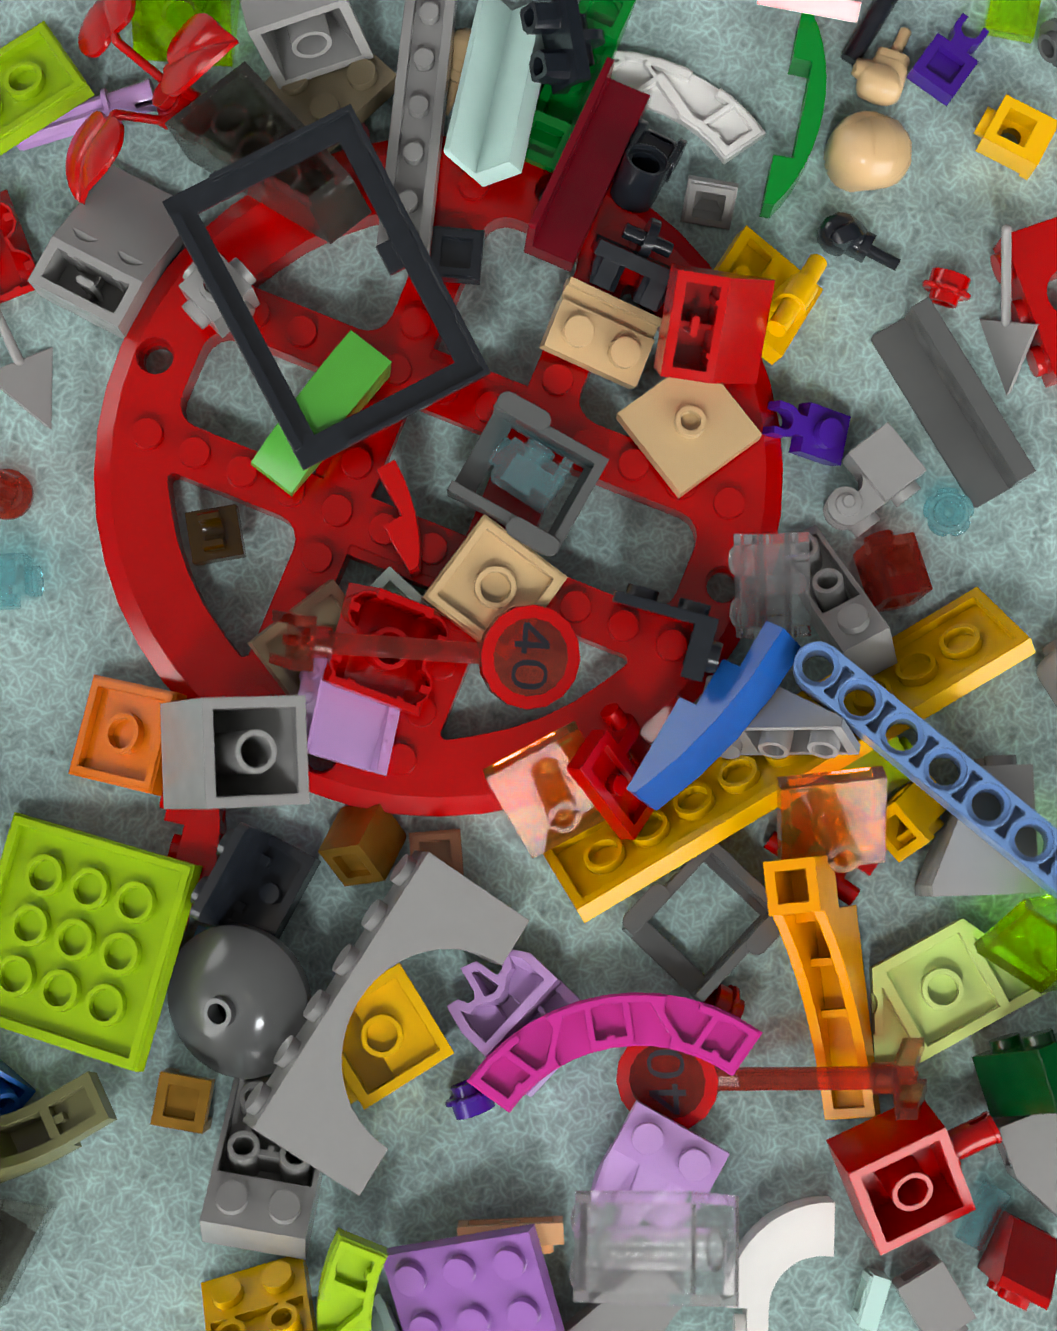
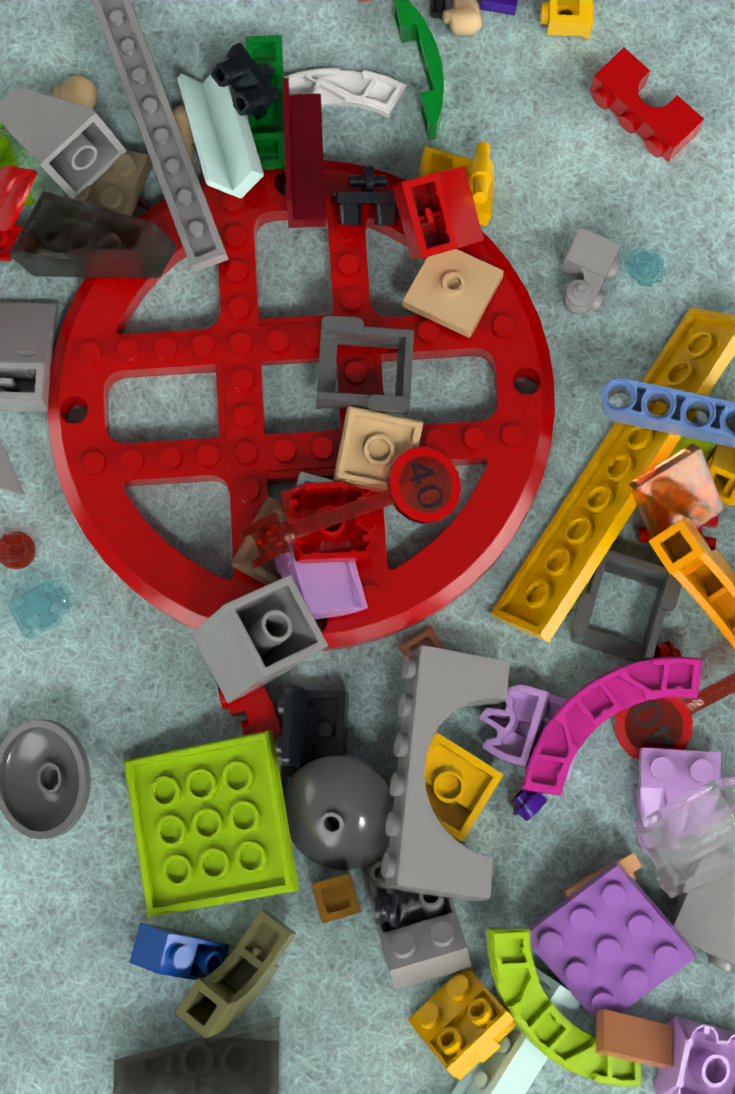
camera: 25 degrees left, 5 degrees down
(122, 735) = (174, 672): orange tile -> none
(200, 303) = (106, 355): light grey brick -> none
(215, 534) = (172, 507): dark brown tile -> none
(235, 1146) = (388, 907): none -> black bush
(332, 394) = (207, 391): bright green slope -> none
(362, 844) = (371, 667): pearl gold panel -> none
(398, 253) = (210, 259): black door -> none
(404, 529) = (300, 441): red slope -> none
(458, 254) = (245, 250): black tile -> none
(528, 472) = (364, 364): clear light blue brick -> none
(541, 793) = (482, 567): clear orange tile -> none
(600, 333) = (365, 256): tan plate -> none
(606, 771) = (521, 533): red plate -> none
(645, 168) = (340, 141): black piece -> none
(702, 650) = (536, 422): black bracket -> none
(703, 731) = (564, 477): blue slope -> none
(709, 202) = (392, 144): light grey slope -> none
(771, 582) = (558, 364): clear brick -> none
(793, 727) = (602, 451): light grey slope -> none
(814, 429) = (534, 255): dark purple plate -> none
(844, 612) = (603, 356): light grey slope -> none
(848, 236) = (493, 124): black piece -> none
(867, 152) = (478, 66): tan hair -> none
(892, 570) = (631, 322): clear red brick -> none
(947, 287) = (573, 127): red plate -> none
(952, 404) = (615, 198): dark grey panel -> none
(1006, 338) = (628, 142): light grey piece -> none

